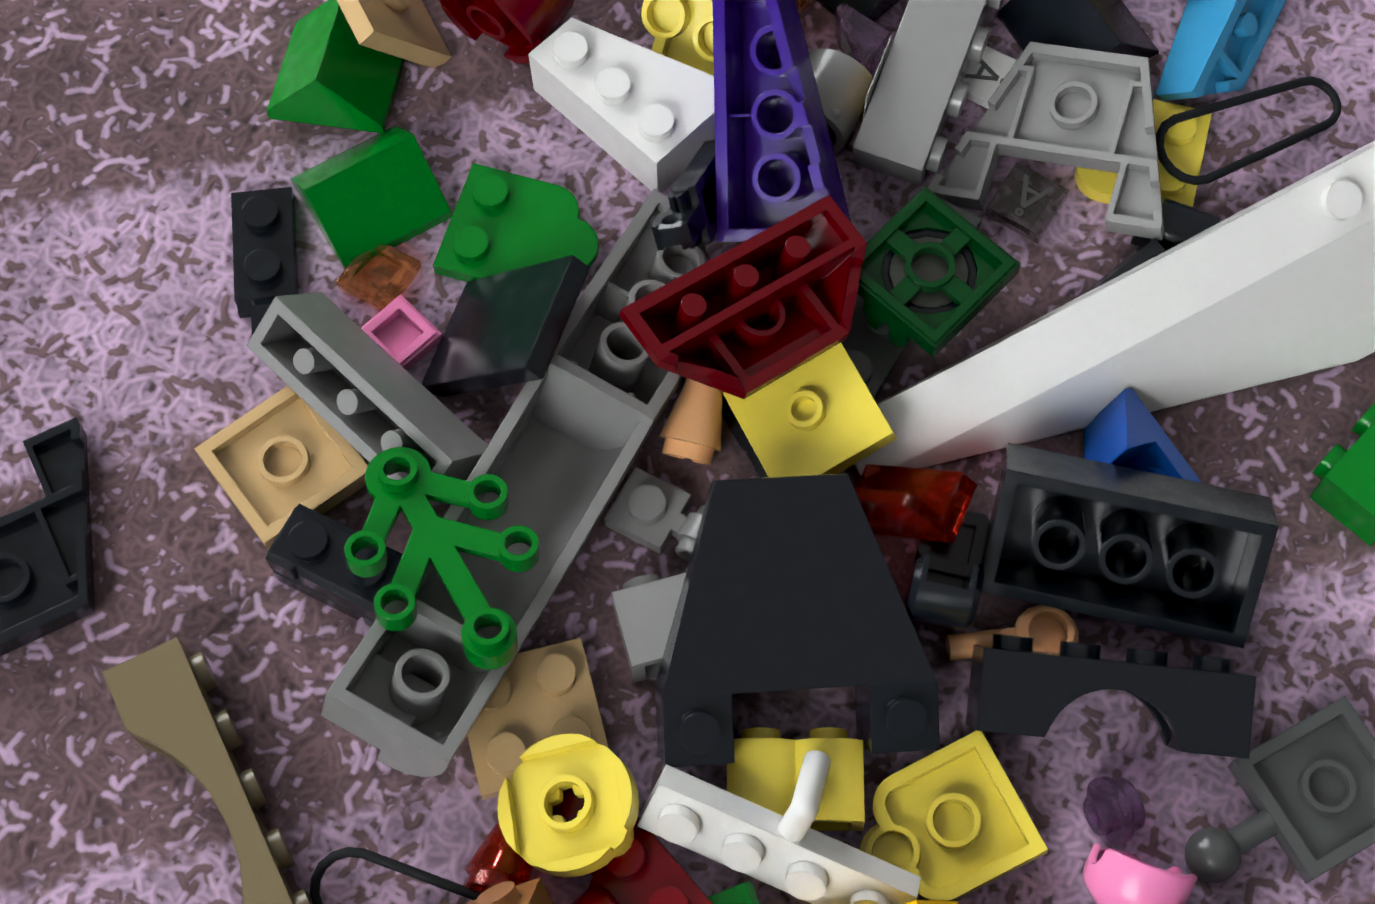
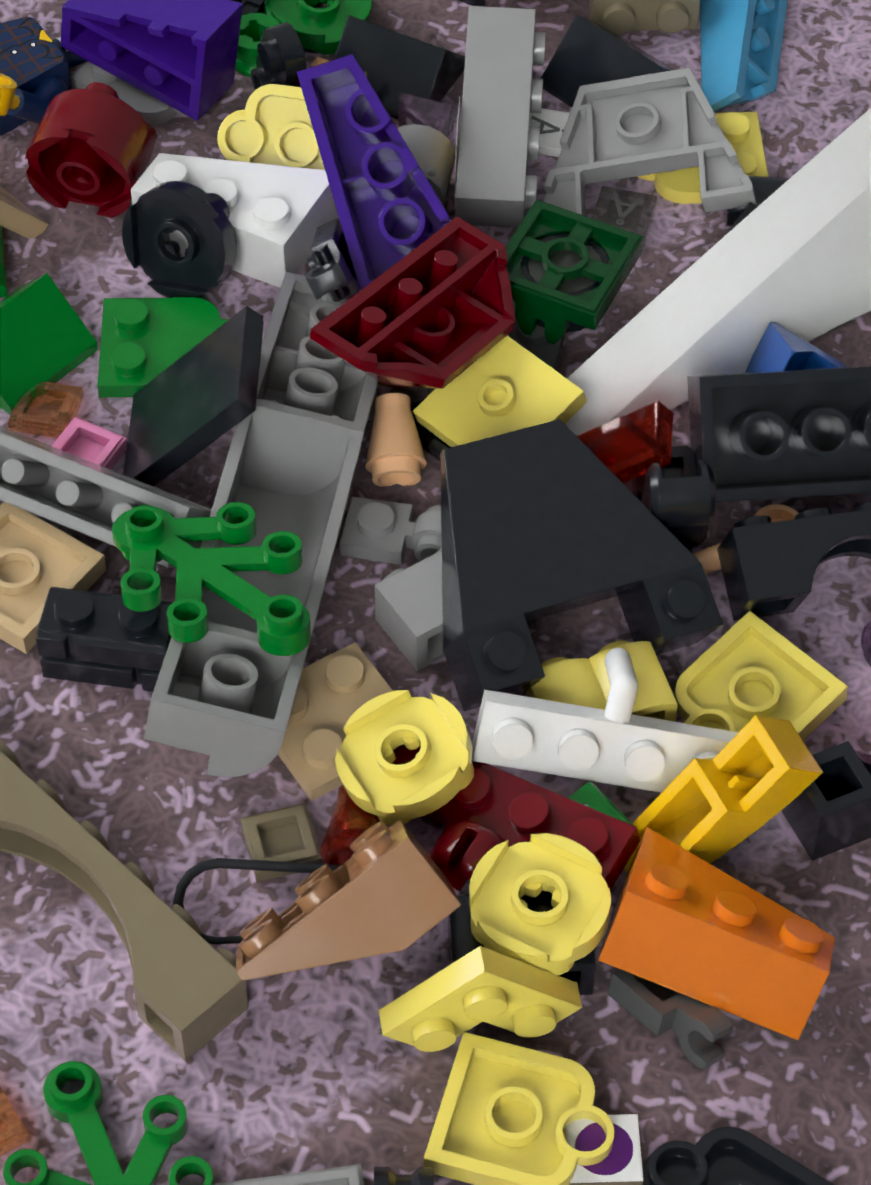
camera: 20 degrees left, 15 degrees down
(437, 839) = (281, 836): none -> dark tan tile
(561, 123) = (203, 222): none -> black plate
(1238, 100) = (785, 92): black piece -> none

